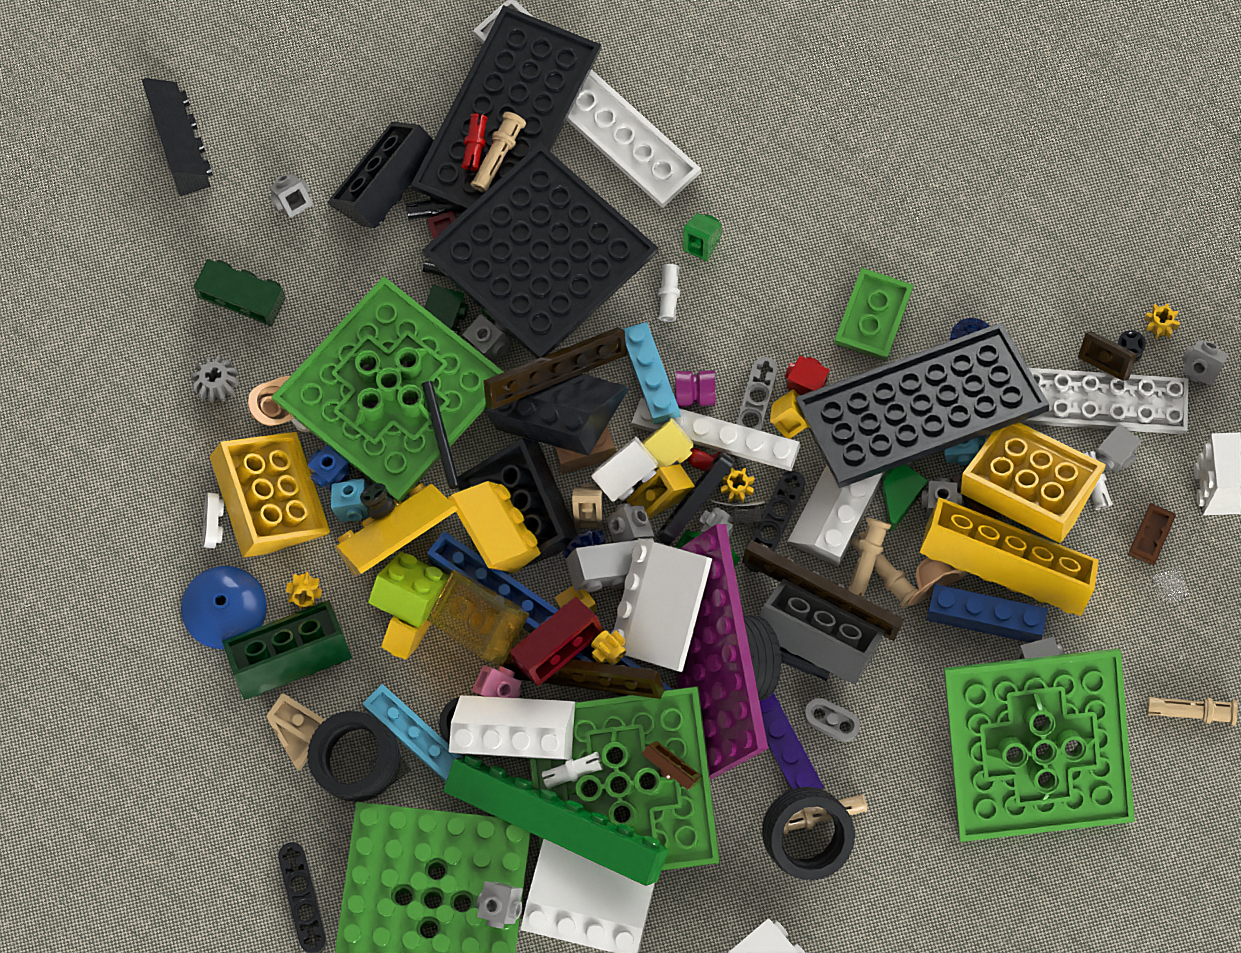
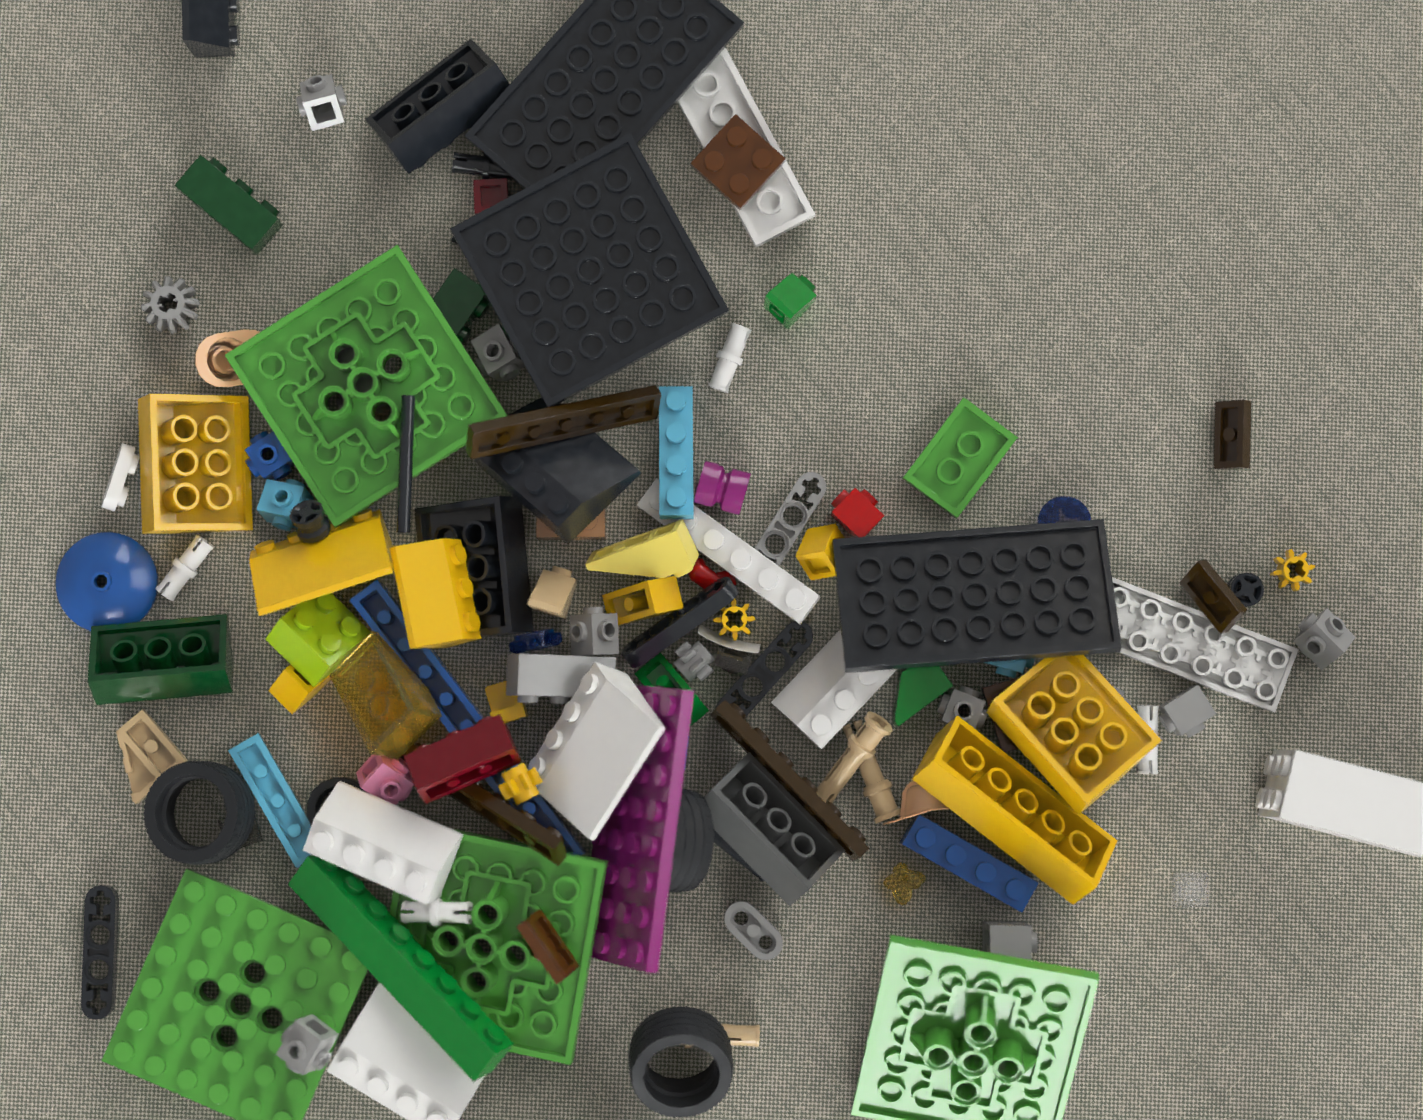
camera: 10 degrees right, 15 degrees up
(284, 574) = (184, 567): none -> white pin
(303, 590) = (200, 594): yellow gear -> none
(474, 142) = (553, 106): red pin -> none
(502, 142) = (587, 116): tan pin -> none
(624, 470) = (606, 570): white brick -> none
(628, 146) = (737, 162): none -> reddish brown plate
(787, 747) = (692, 949): dark purple plate -> none
(940, 646) = (902, 882): none -> clear yellow piece
(1079, 235) = (1232, 434): none -> dark brown plate
(1152, 534) = (1190, 823): reddish brown plate -> none
(1206, 710) = (1179, 1049): tan pin -> none

